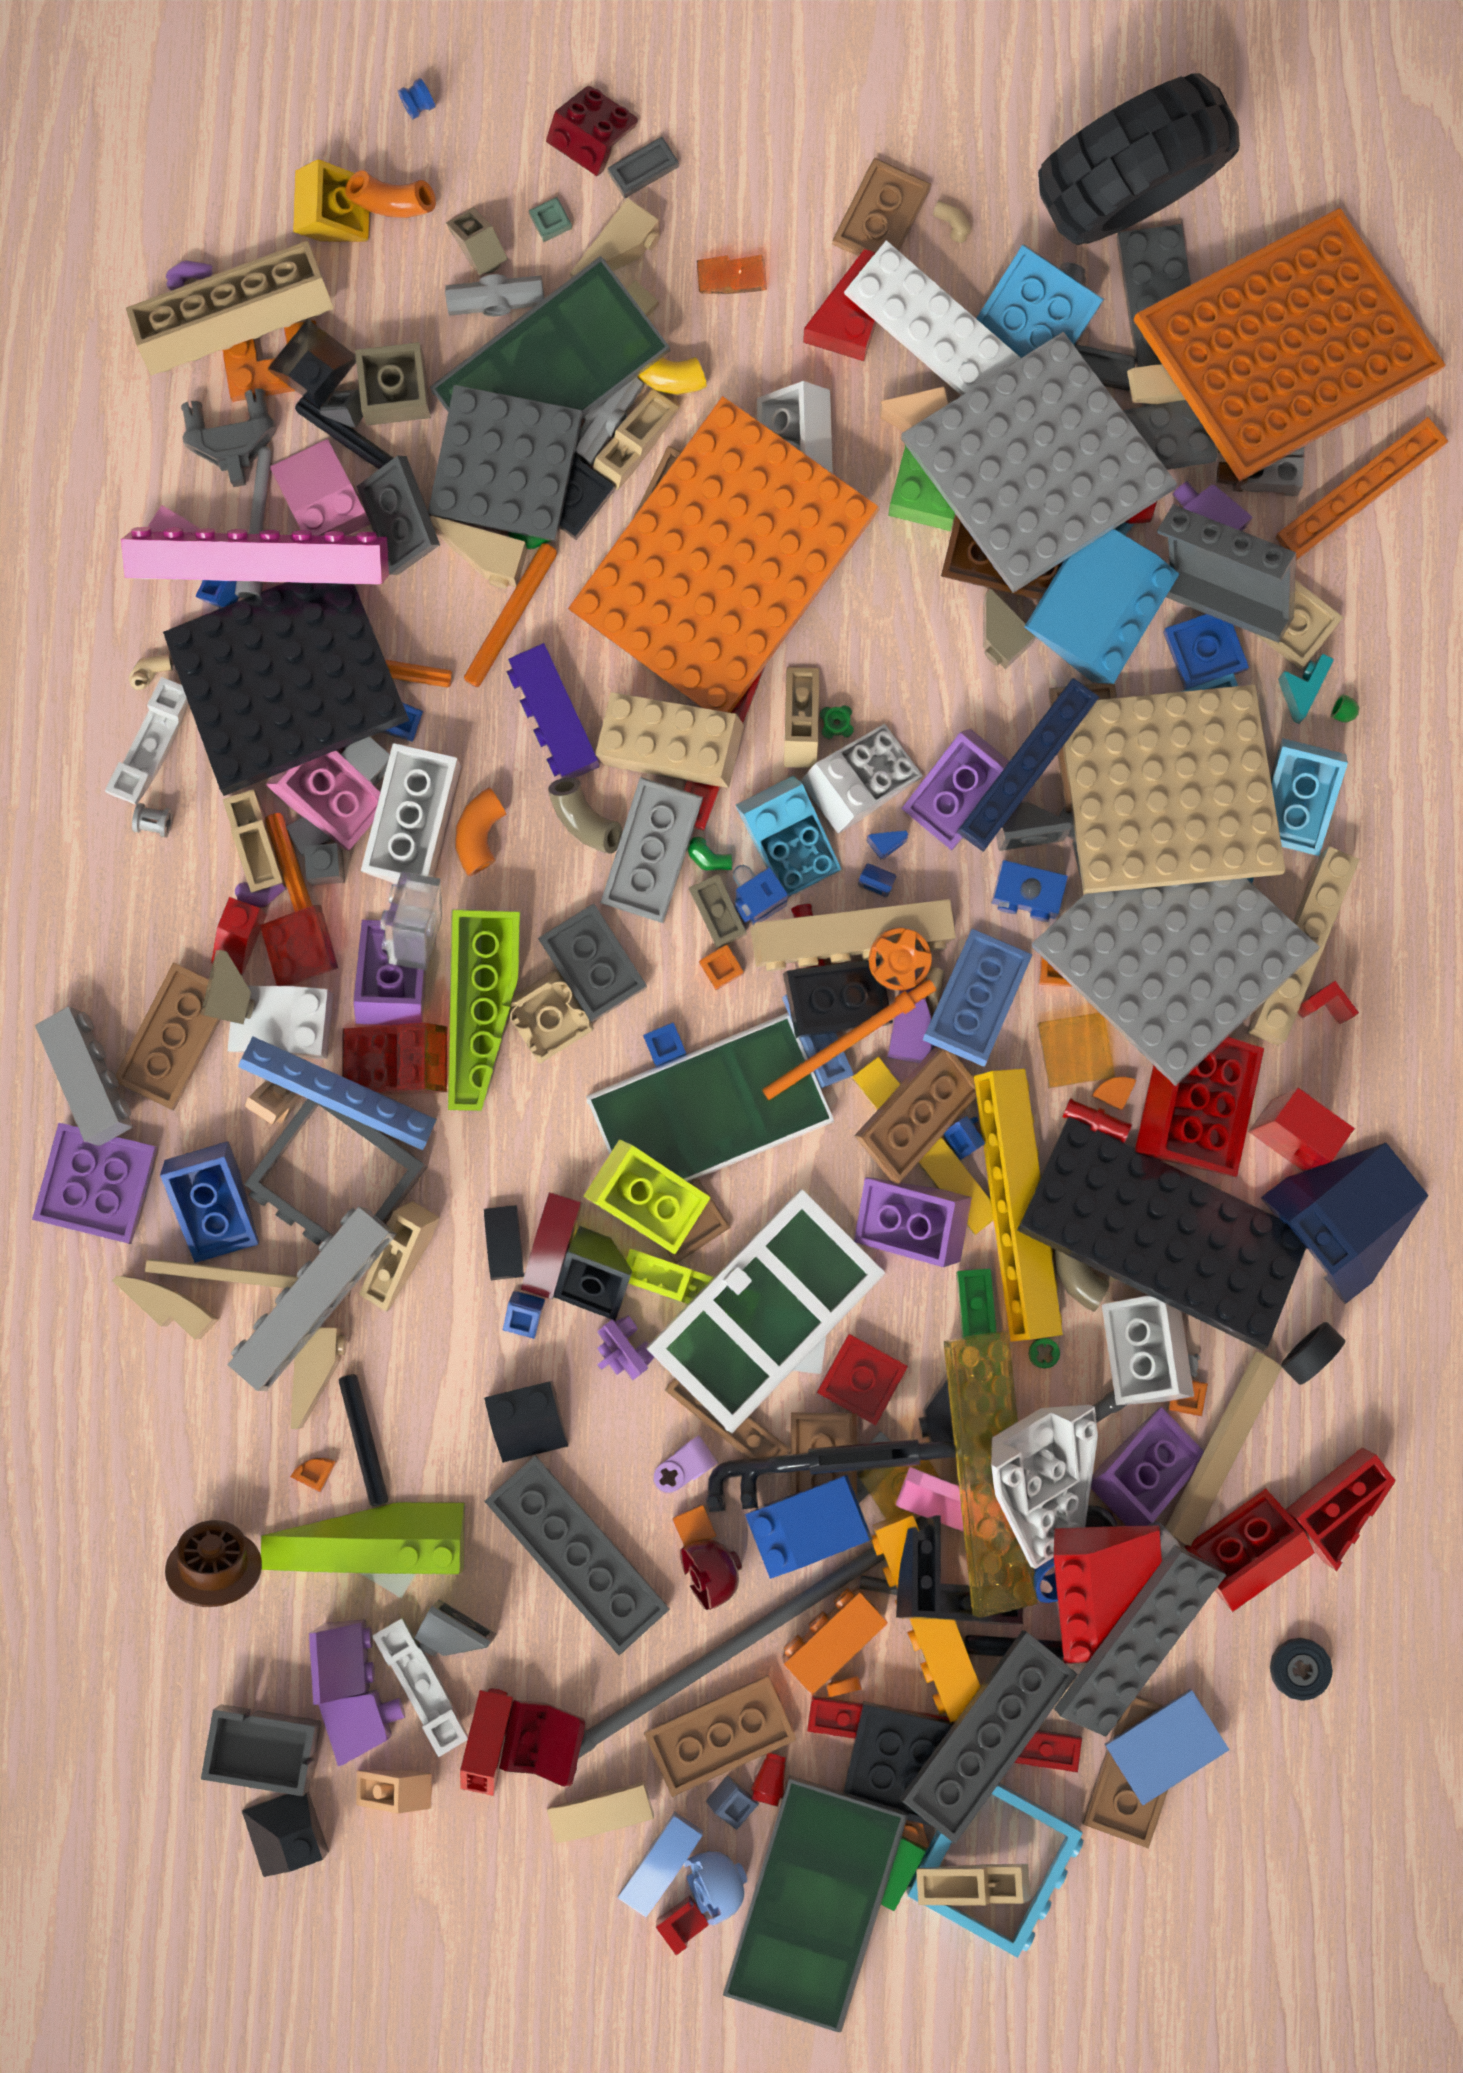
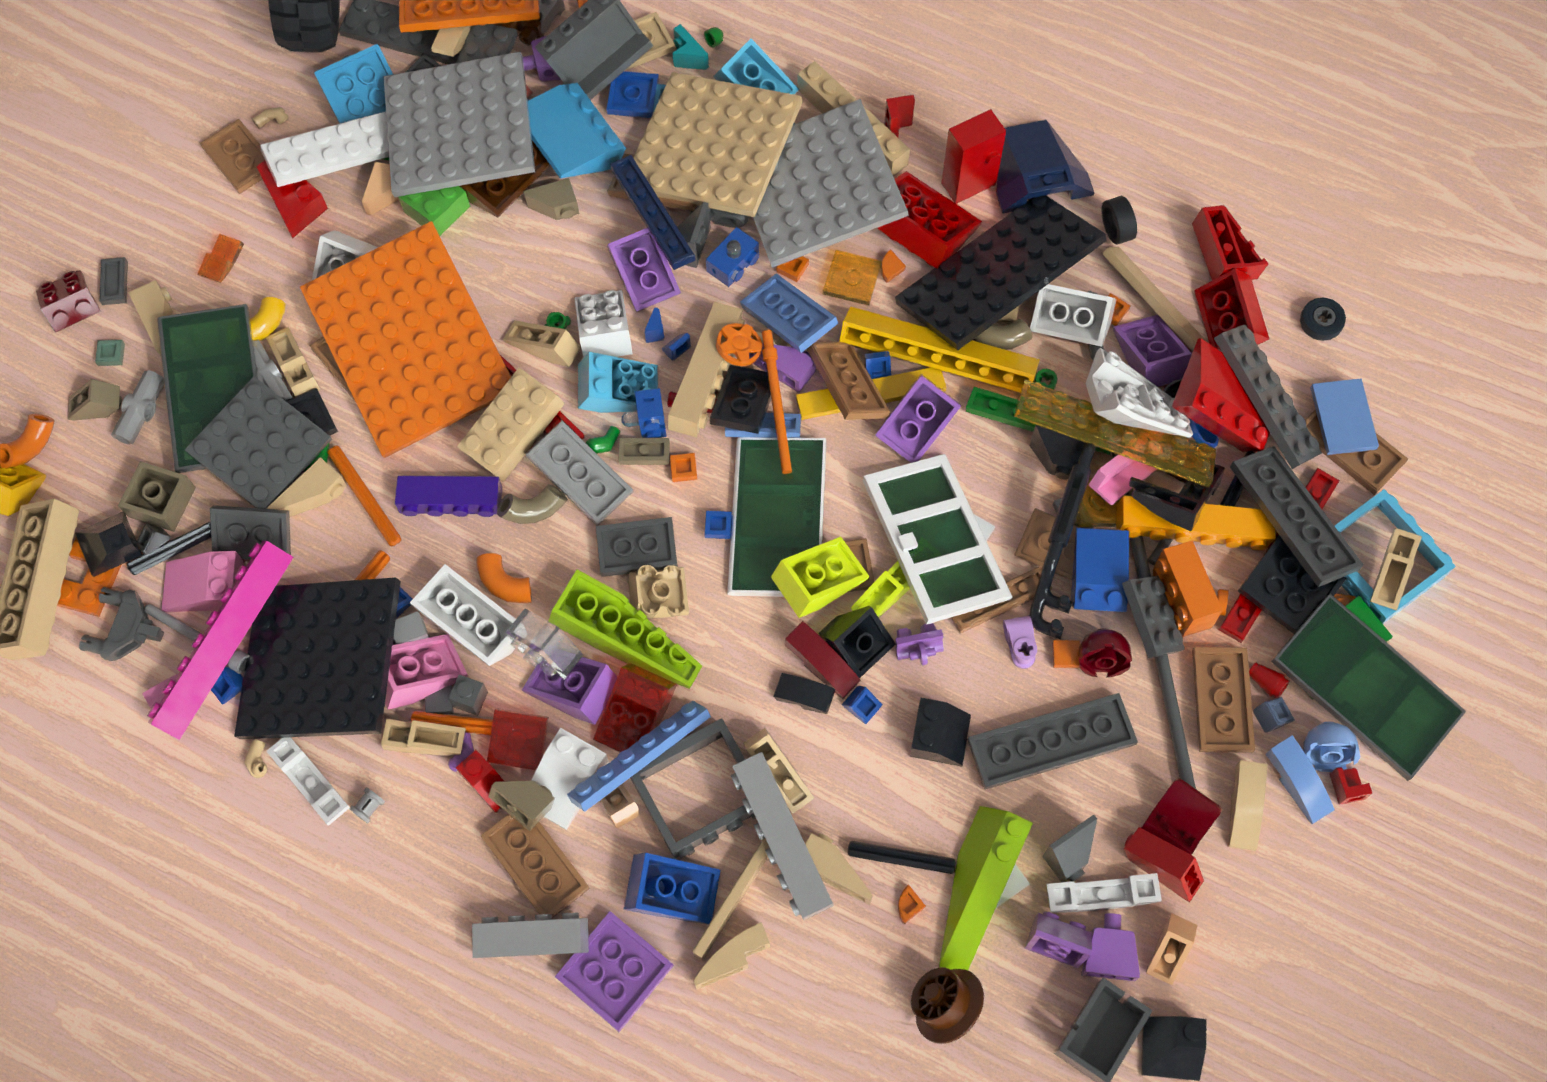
camera: 65 degrees left, 15 degrees down
(778, 1613) = (1153, 616): none -> dark grey plate
(862, 1379) = (1011, 499): red plate -> none
(1098, 1120) = (904, 282): red pin -> none

